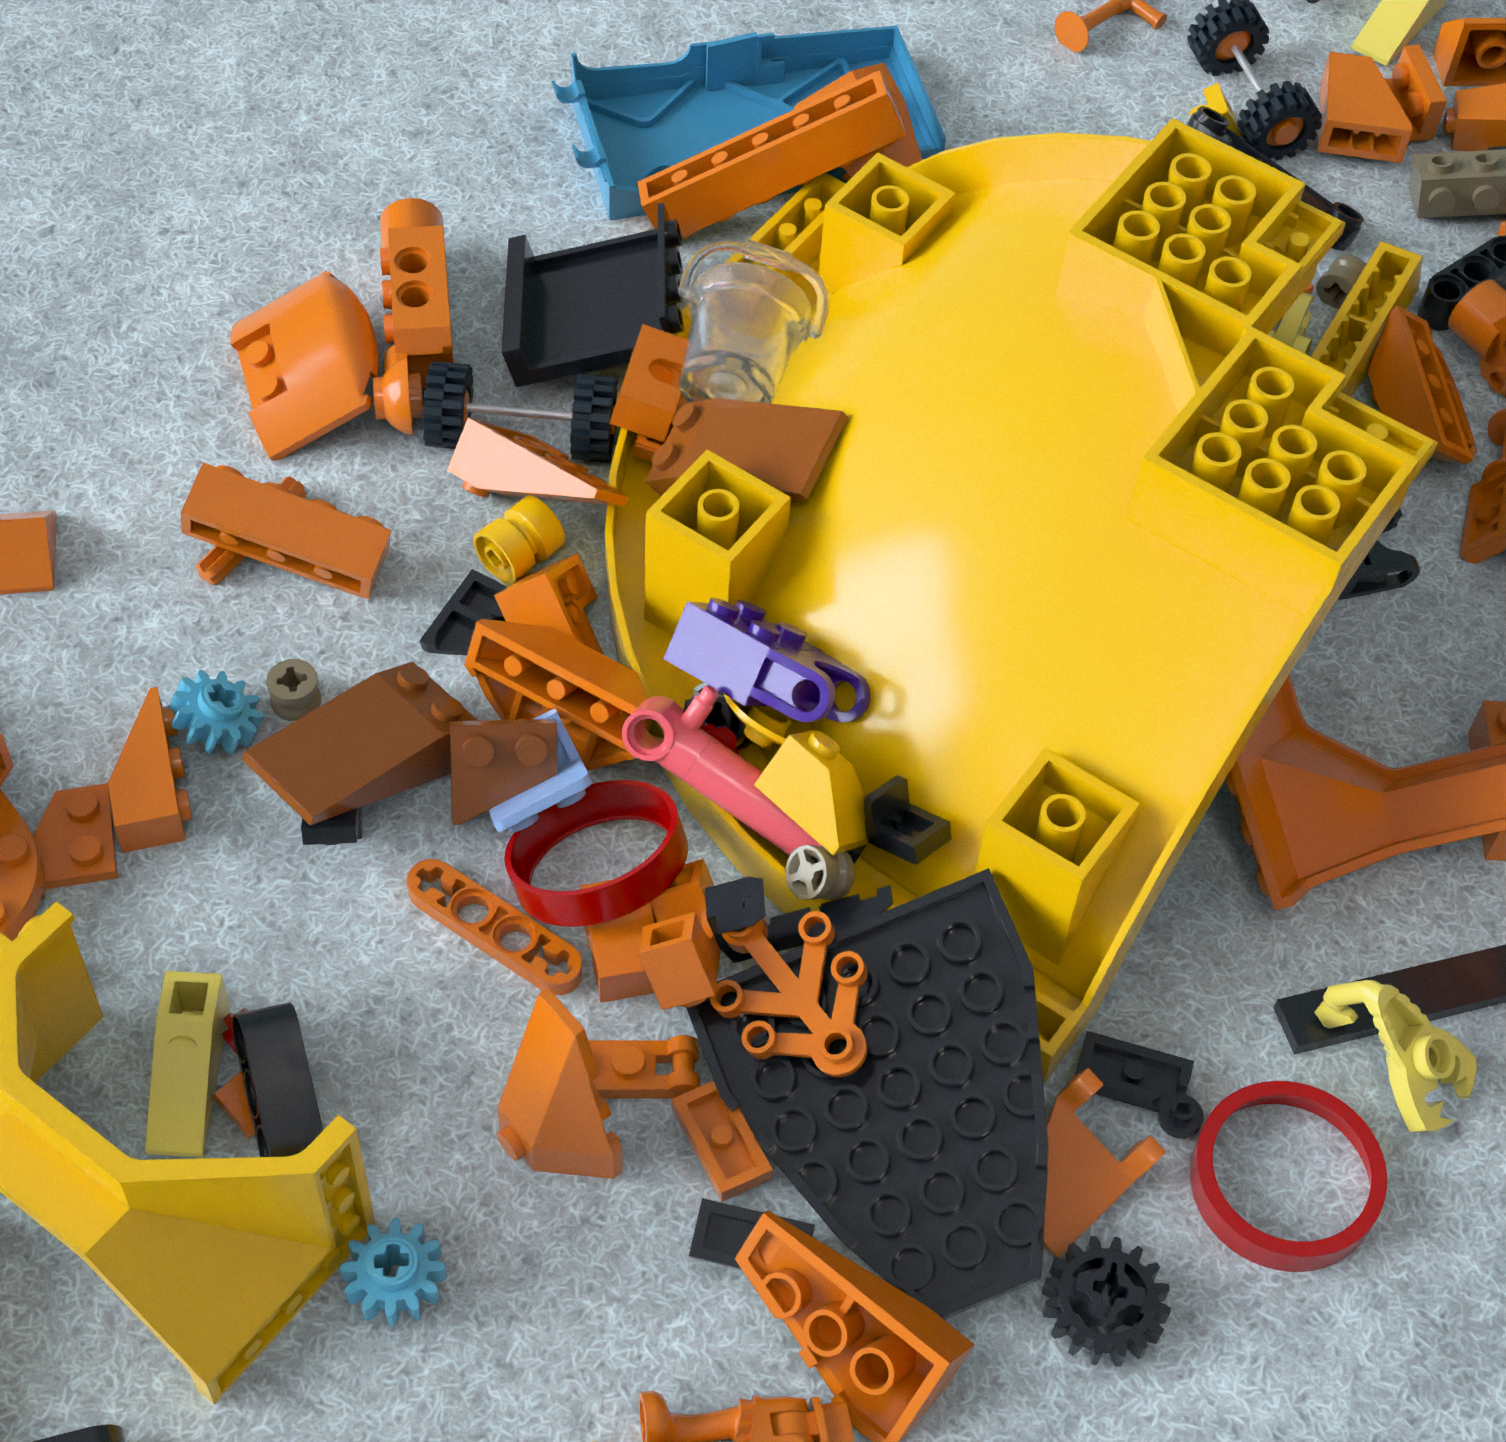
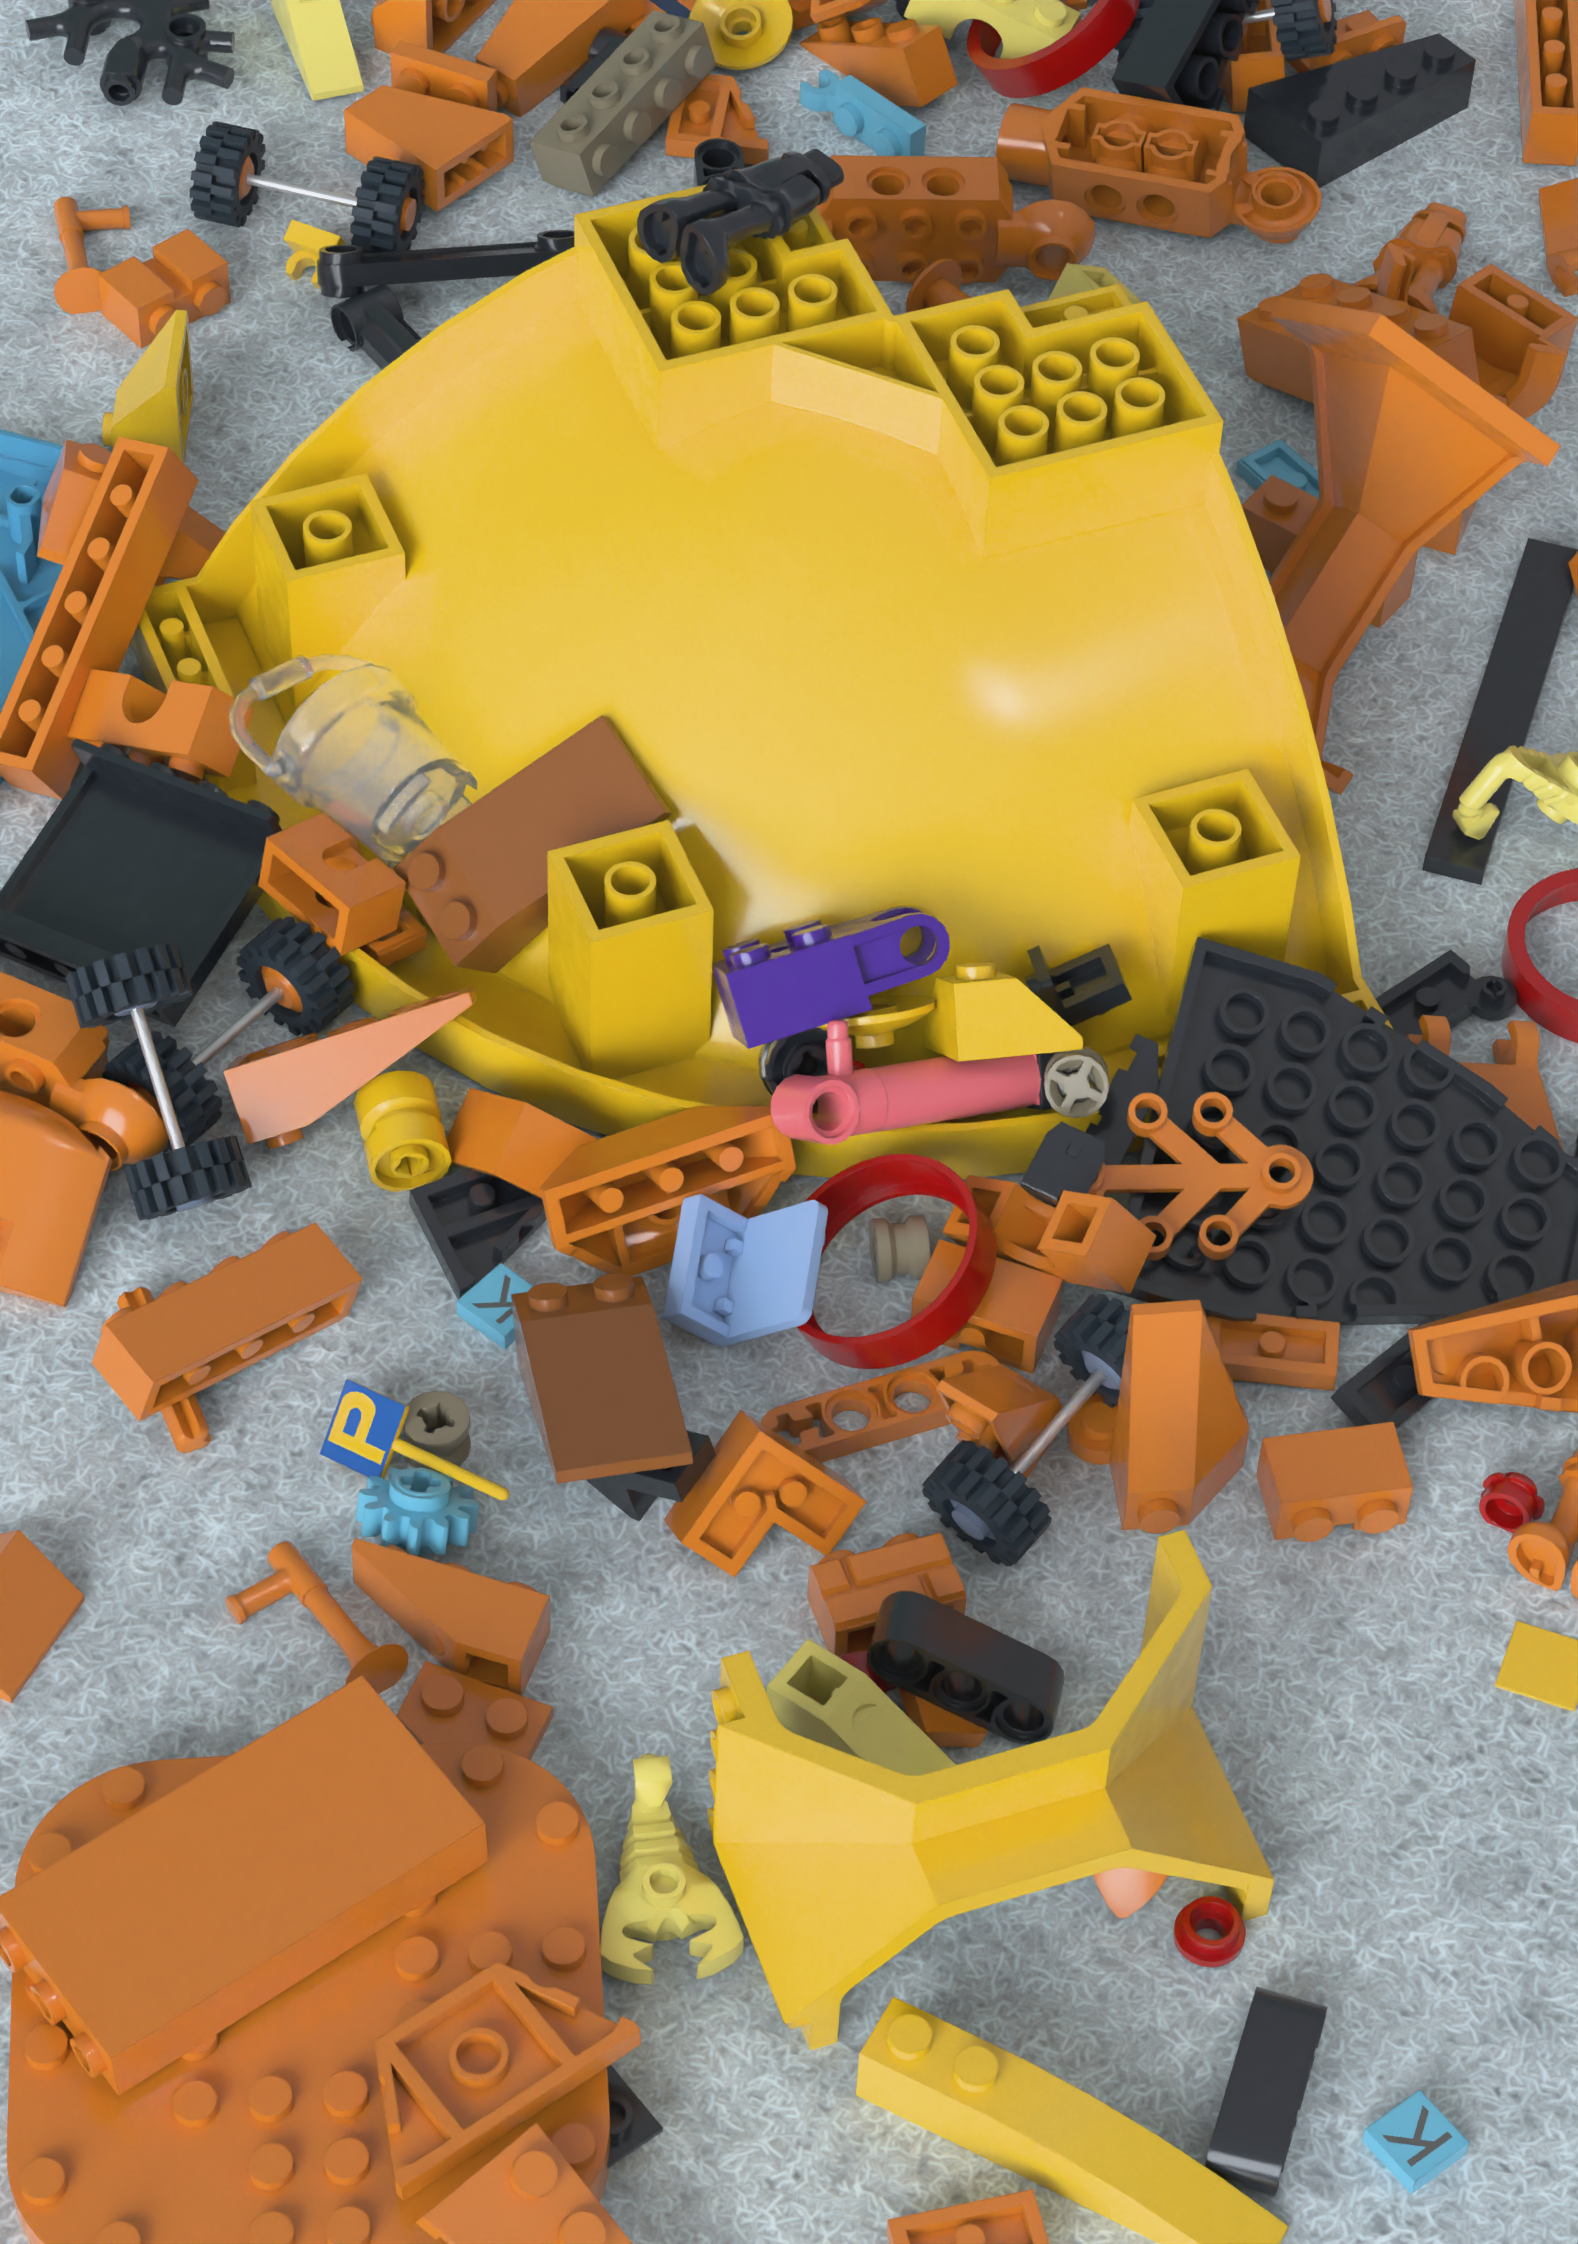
camera: 55 degrees left, 5 degrees down
(80, 755) = (379, 1665): none -> orange piece
(146, 1367) = (1213, 1914): none -> red plate
(257, 656) = (368, 1432): none -> piece
(333, 1014) = (850, 1587): none -> orange brick
(366, 889) = (752, 1485): none -> orange panel
(413, 1278) = (1243, 1683): medium azure gear -> none
(433, 1024) = (988, 1499): none -> black axle
(438, 662) = (489, 1304): none -> medium azure tile
(460, 324) = (130, 989): none -> black axle
(489, 981) = (998, 1411): none -> orange slope
(497, 762) = (709, 1286): dark orange wing -> none
(623, 1242) = (1334, 1480): none -> orange brick
(627, 852) = (899, 1248): none -> dark tan wheel
(696, 1377) = (1513, 1495): none -> red plate
(713, 220) = (177, 729): none -> orange arch
(1012, 106) = (157, 393): none -> yellow slope
(1111, 66) = (178, 277): none -> orange brick
(1256, 187) = (732, 207): none -> black piece

